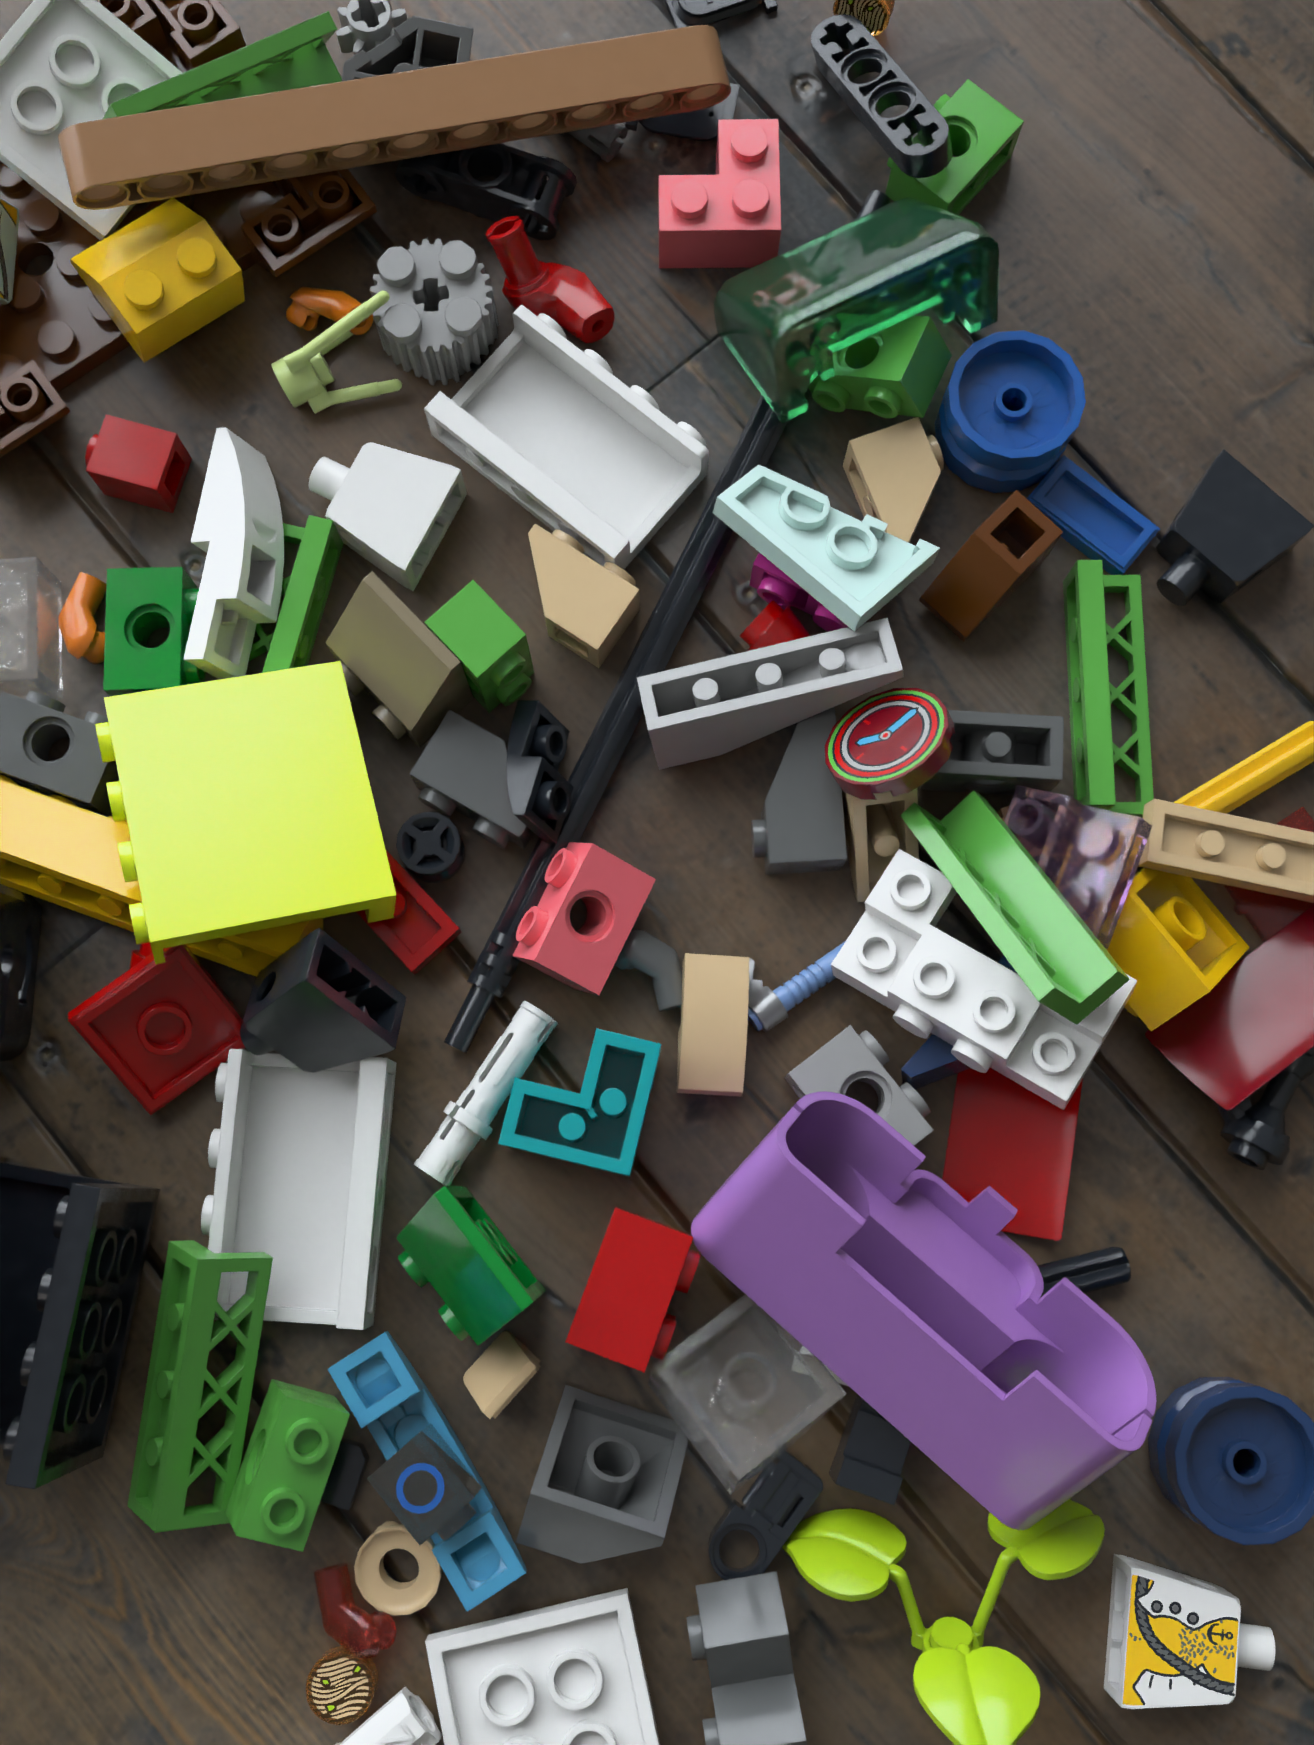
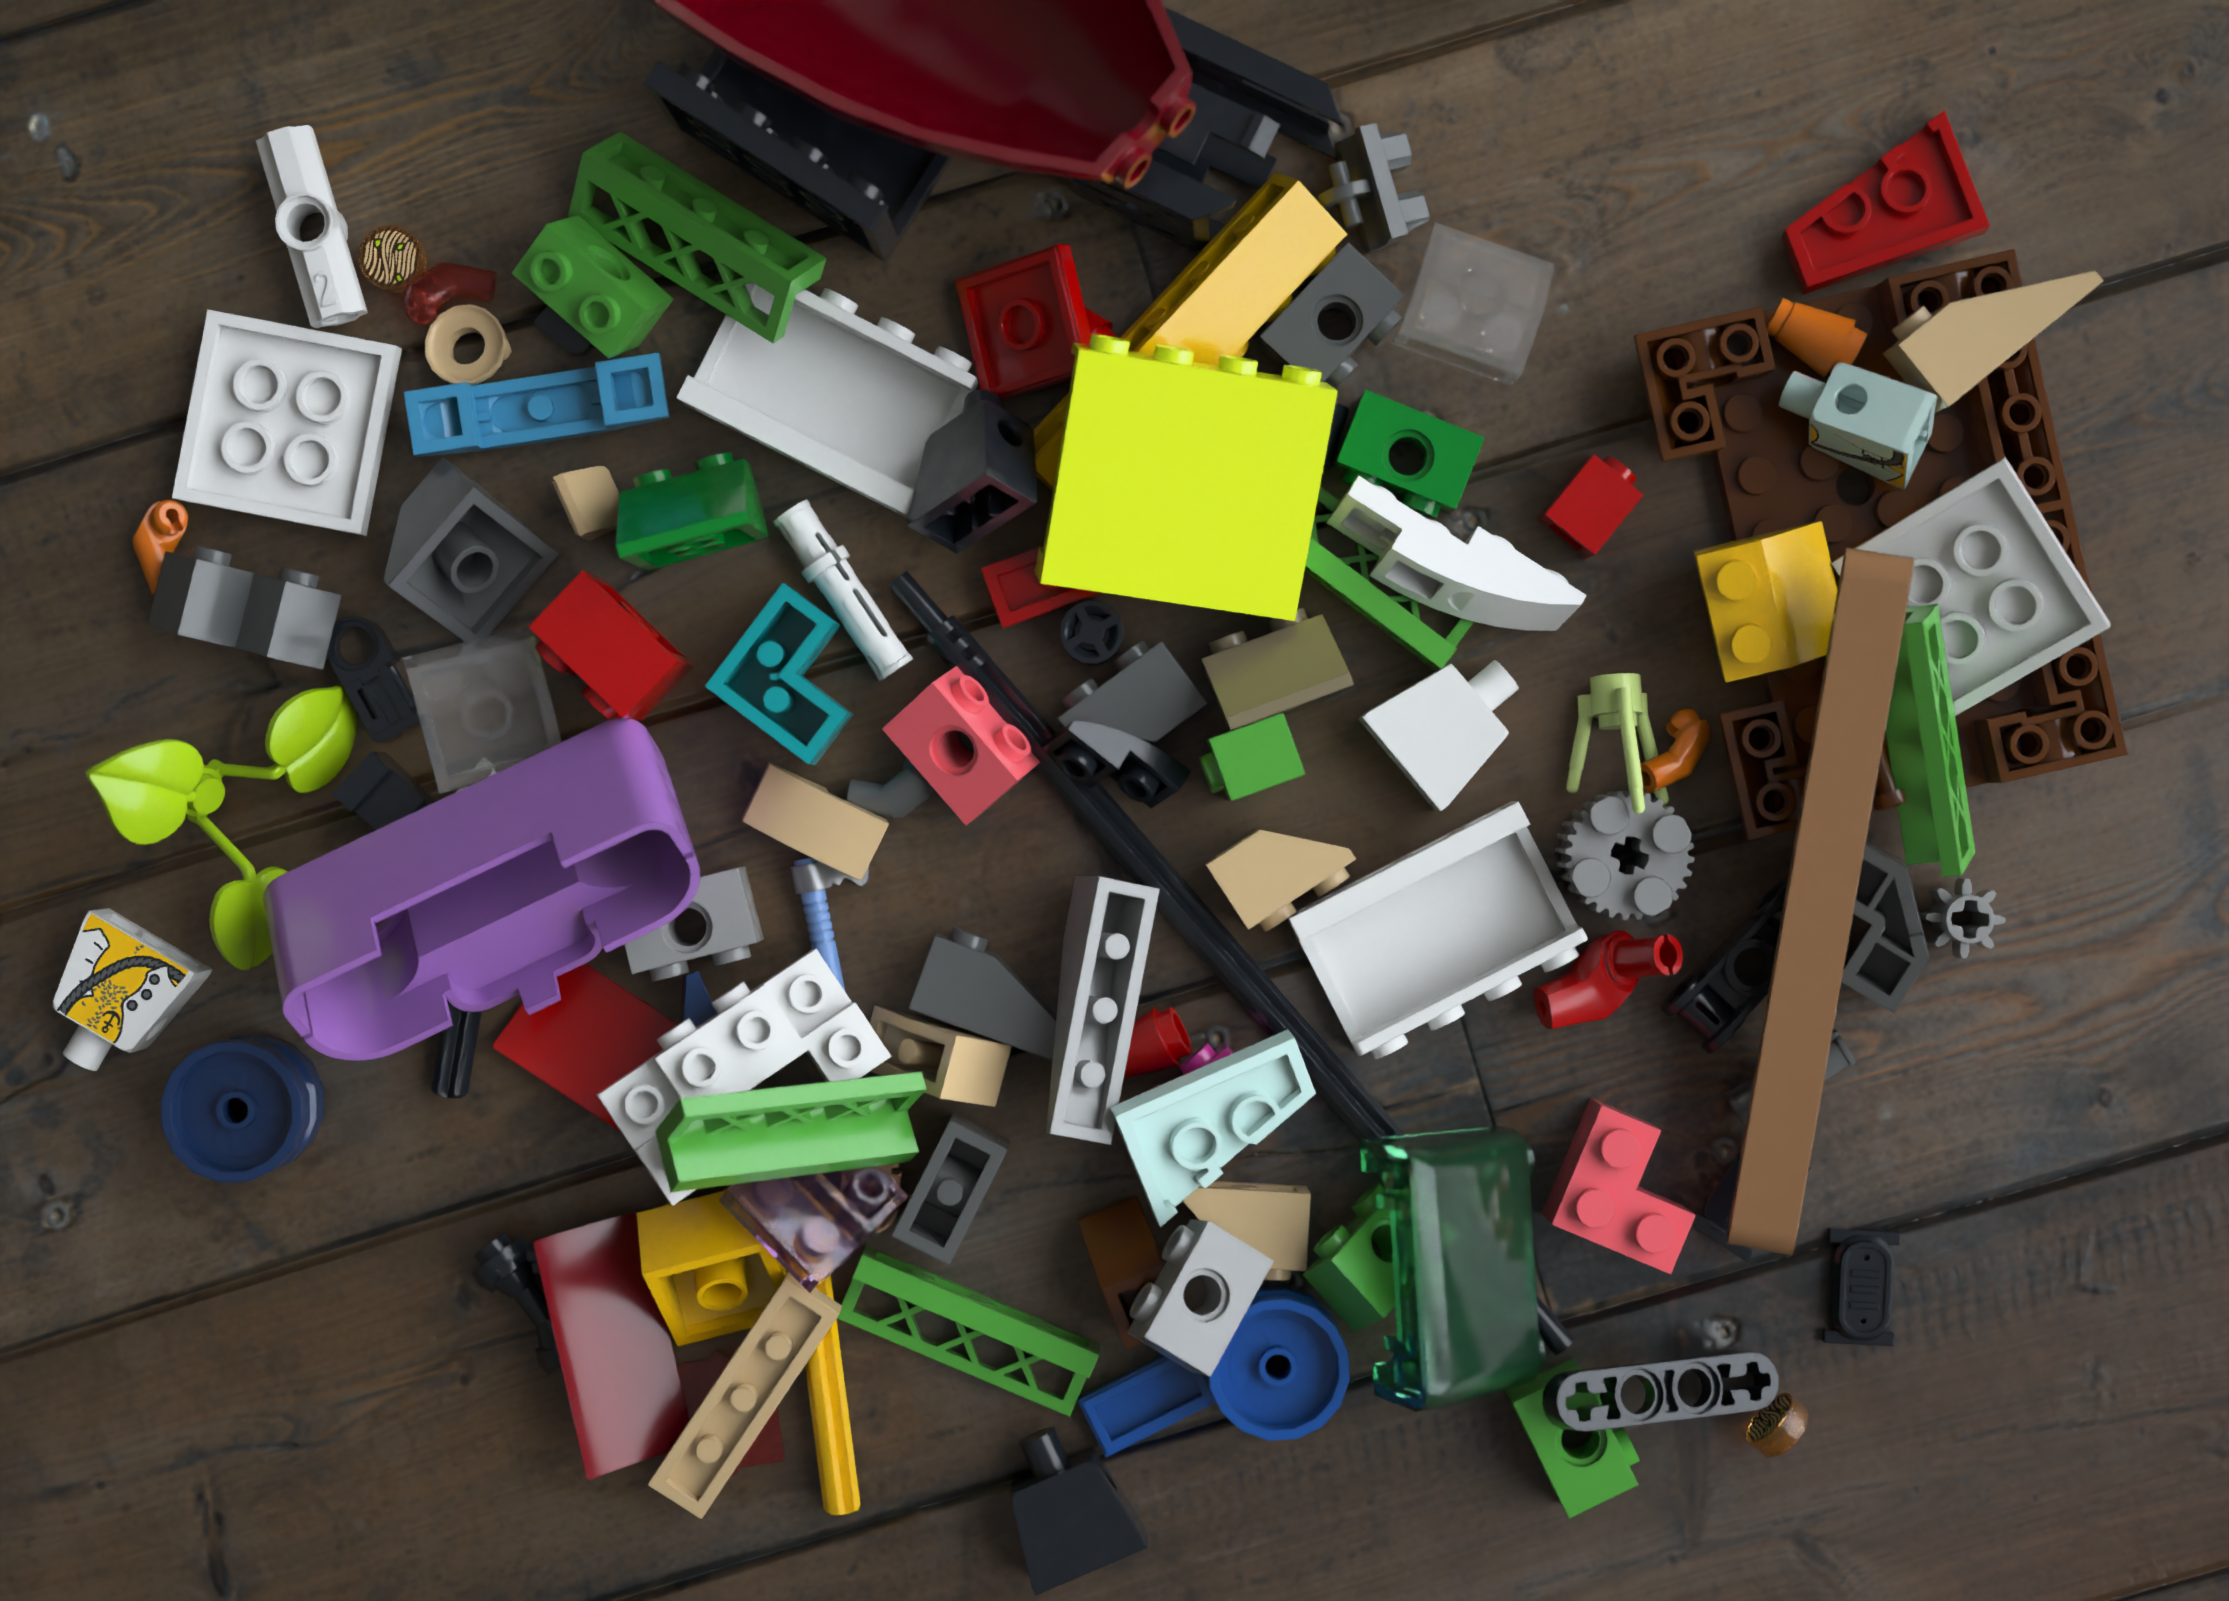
camera: 115 degrees right, 10 degrees up
(78, 621) = (1455, 387): orange arm -> none
(427, 1487) = (521, 400): clear smoke brick -> none
(889, 743) = (990, 1091): tile -> none
(963, 458) = (1231, 1280): none -> light grey brick

